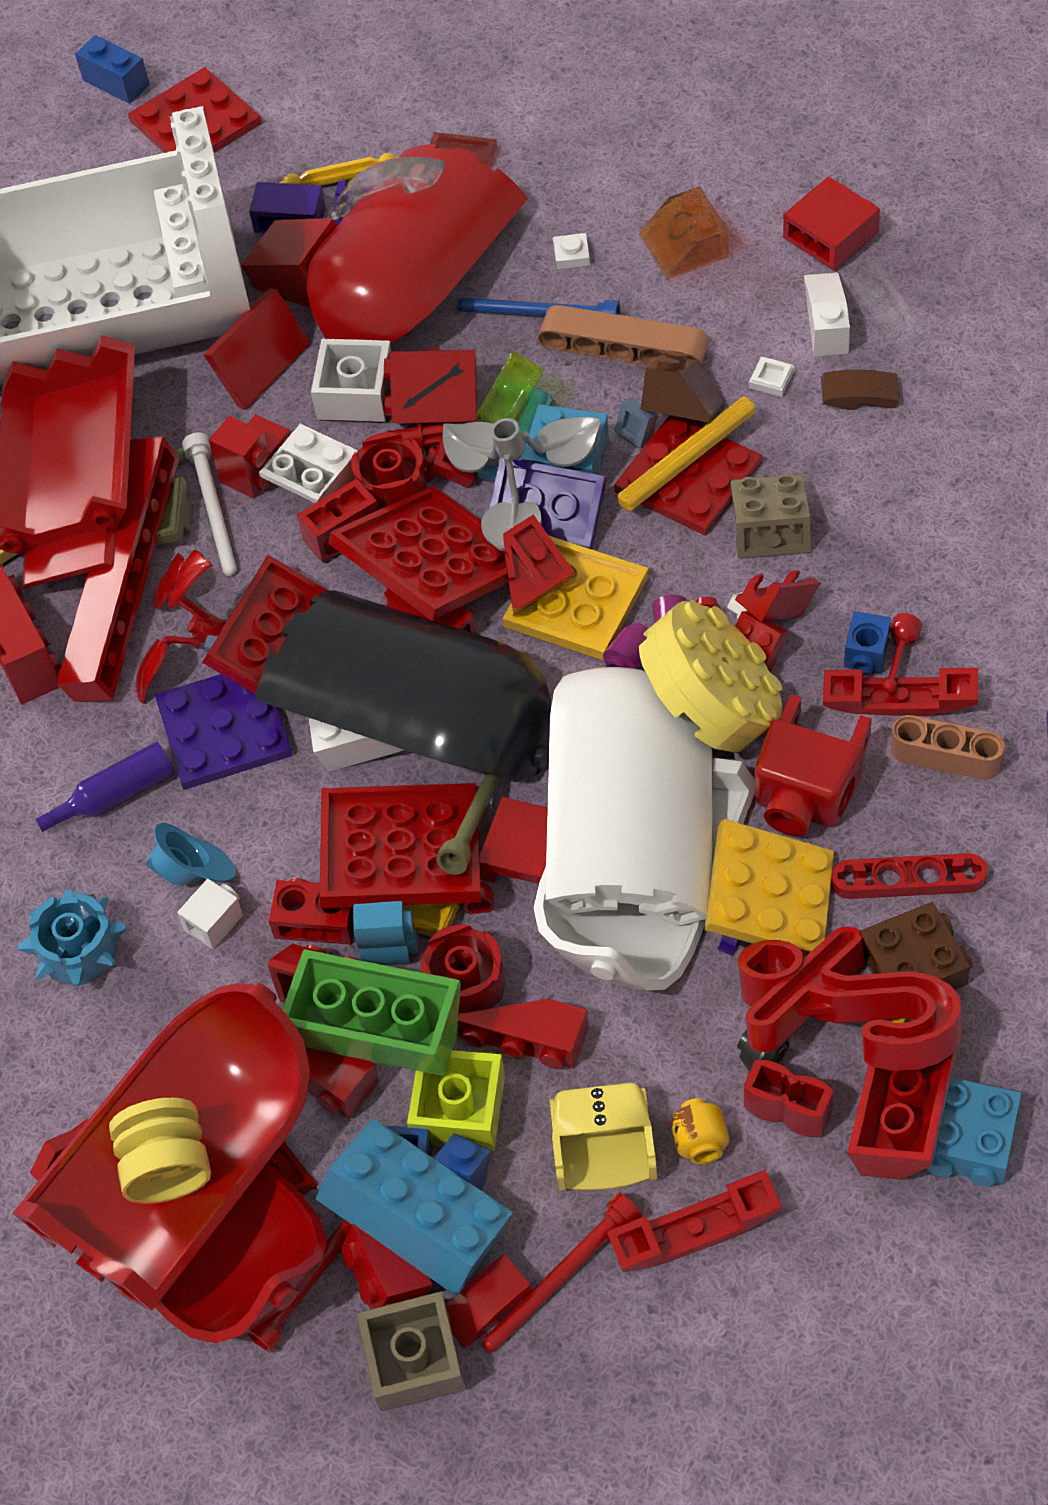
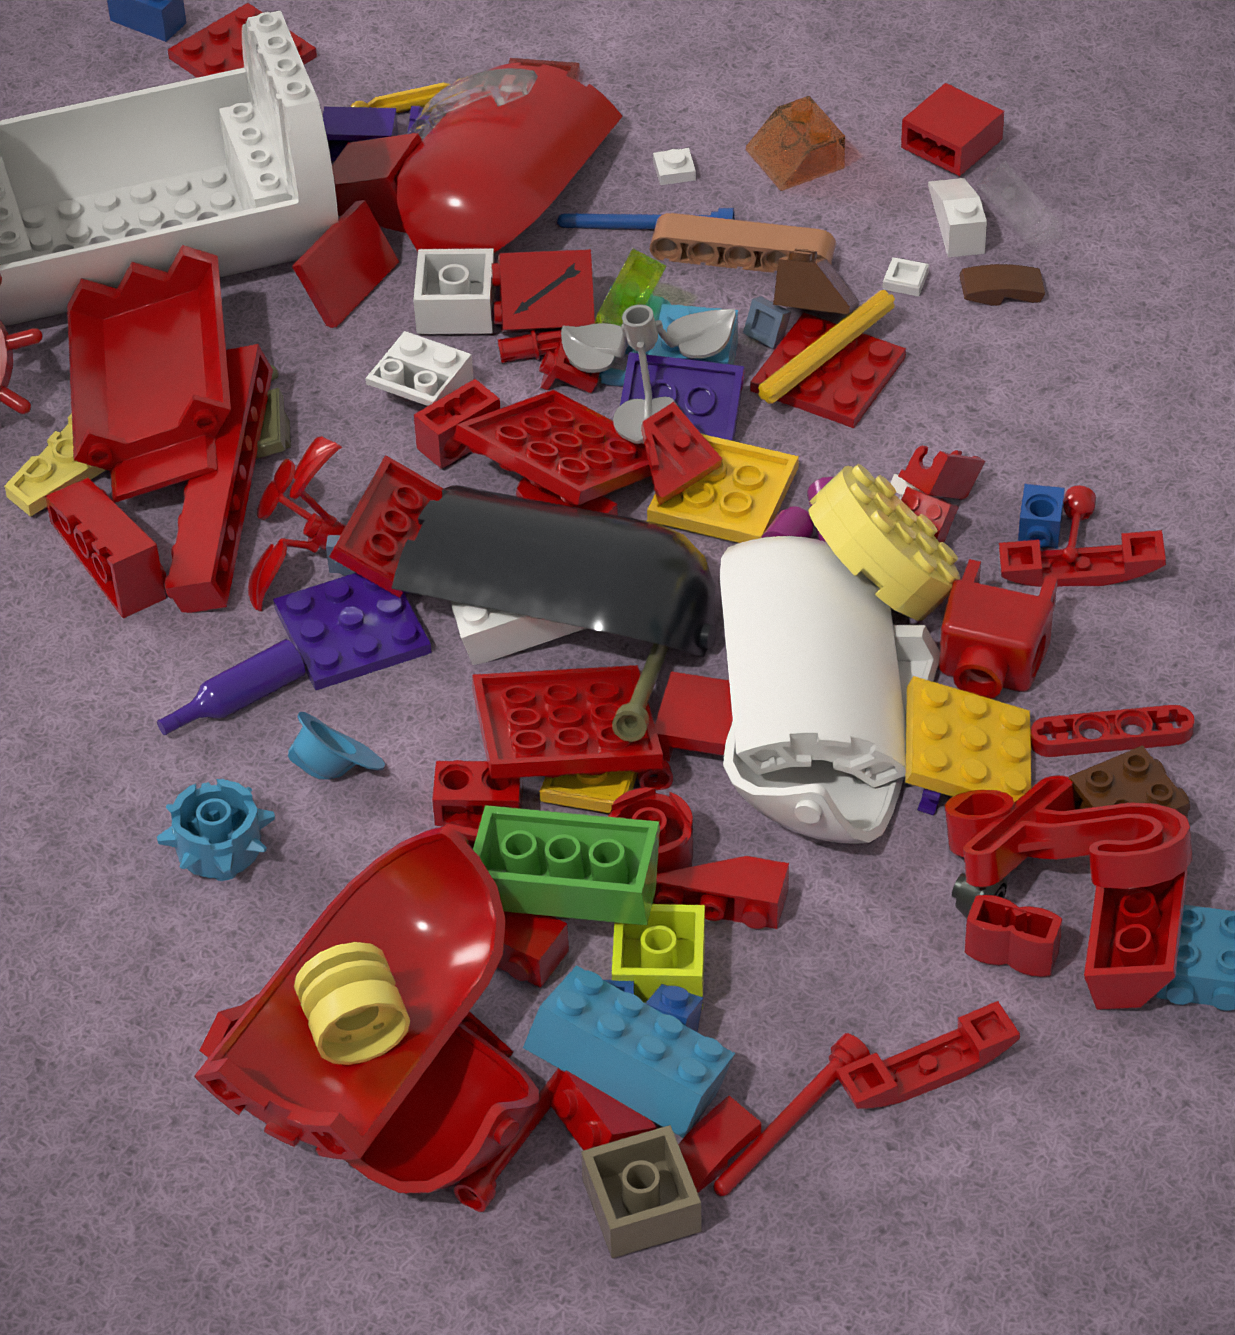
camera: 10 degrees left, 10 degrees down
(198, 451) = (290, 367): white piece -> none
(211, 913) = (364, 800): white brick -> none
(243, 450) = (342, 362): red brick -> none
(385, 933) = (561, 789): dark azure brick -> none
(389, 467) = (508, 368): red brick -> none
(602, 1137) = (820, 984): light yellow piece -> none
(700, 1131) = (922, 974): yellow head -> none
(771, 516) = (924, 404): dark tan bracket -> none
(966, 742) = (1138, 608): nougat beam -> none

